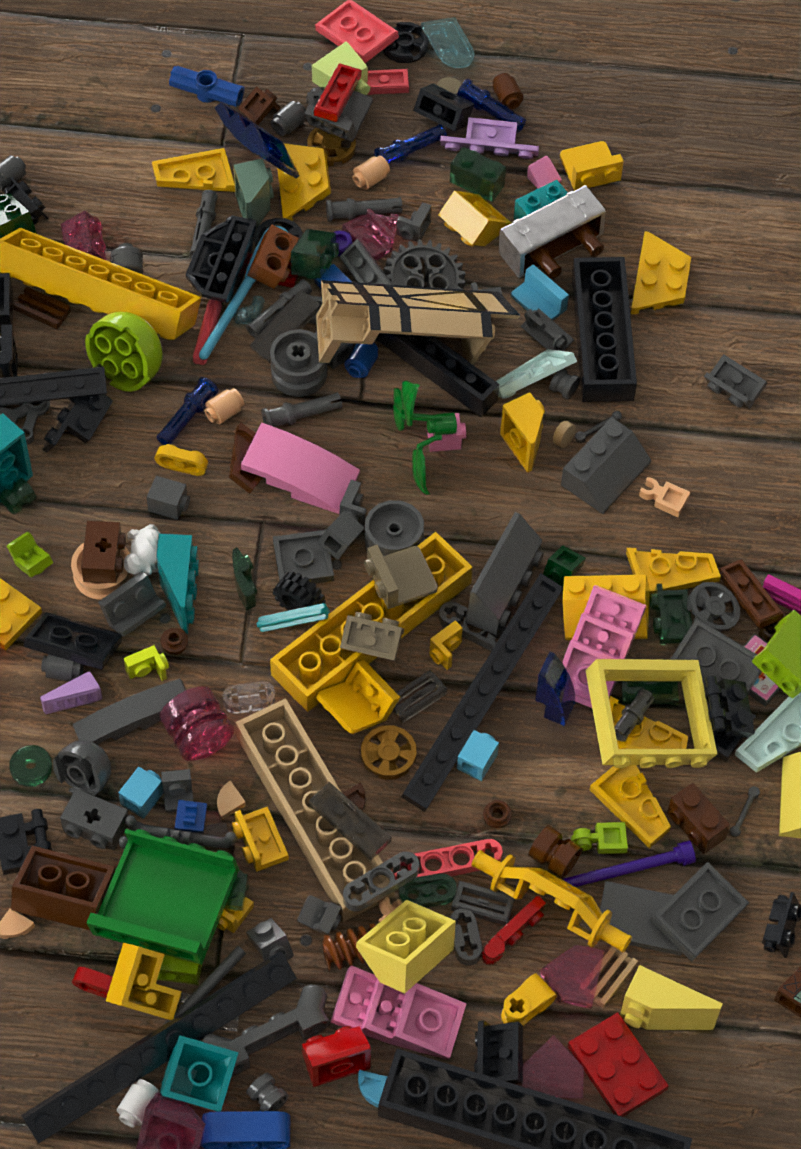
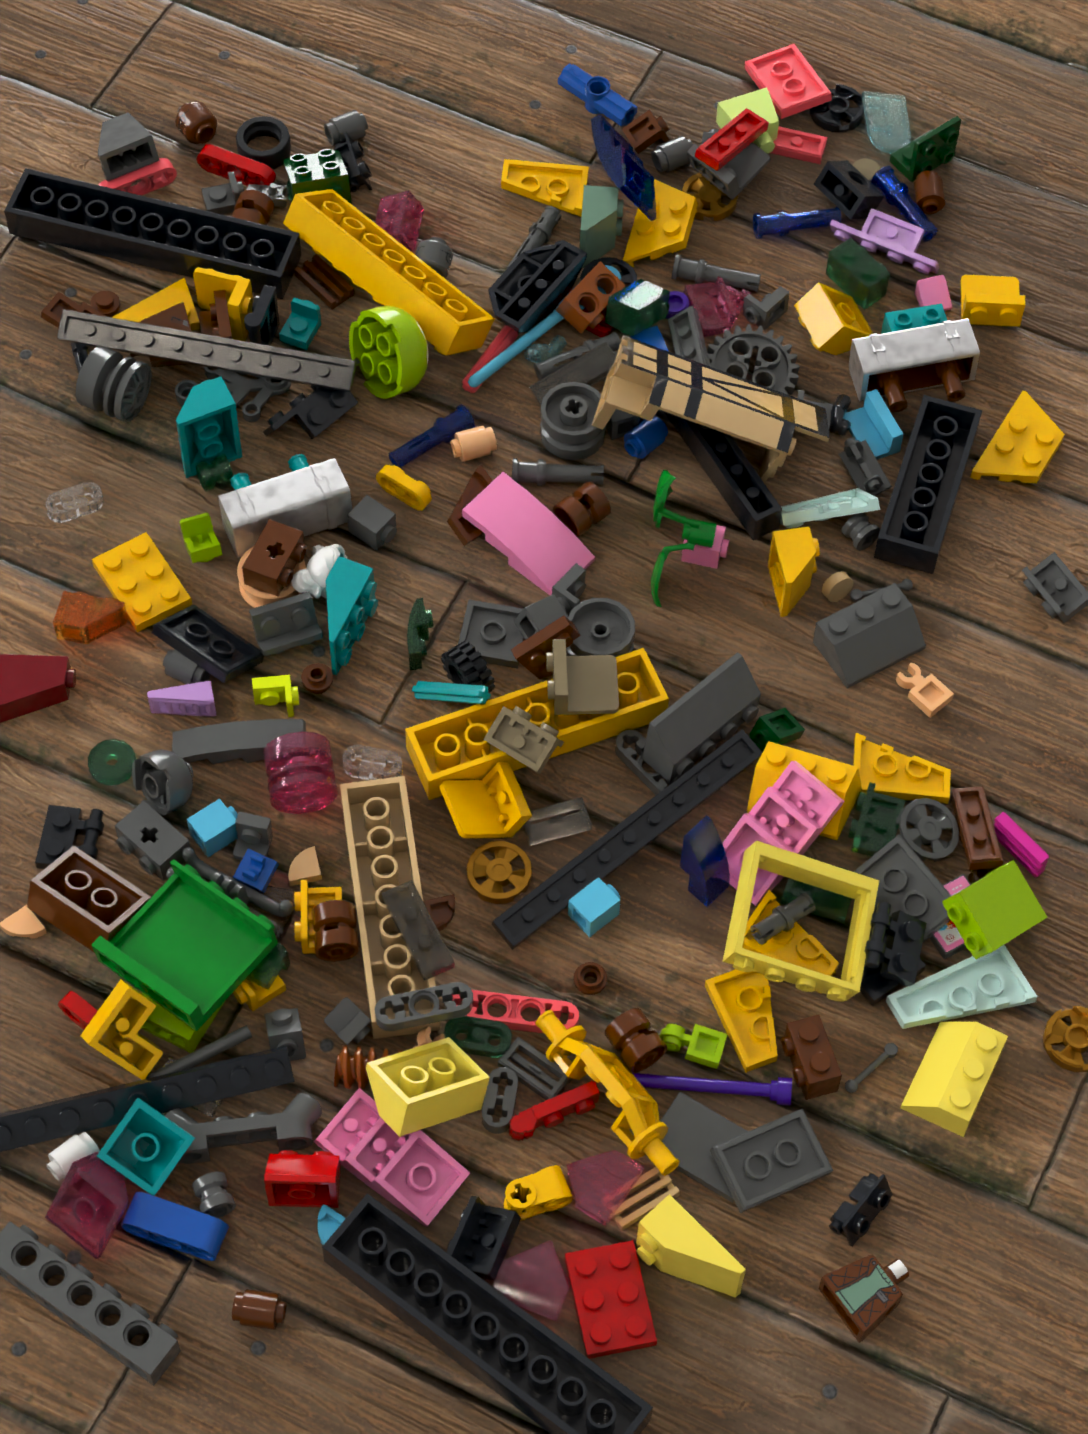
camera: 20 degrees right, 0 degrees up
(38, 349) = (301, 324): none -> teal bracket
(104, 496) = (304, 499): none -> flat silver piece
(281, 845) = (334, 929): none -> reddish brown wheel
(336, 432) = (582, 509): none -> reddish brown wheel
(351, 562) = (532, 651): none -> reddish brown plate
(371, 172) = (739, 238): light nougat brick -> none
(444, 643) = (608, 771): yellow bracket -> none
(492, 57) = (928, 150): none -> dark green bracket
(507, 290) = (839, 409): none -> black arm

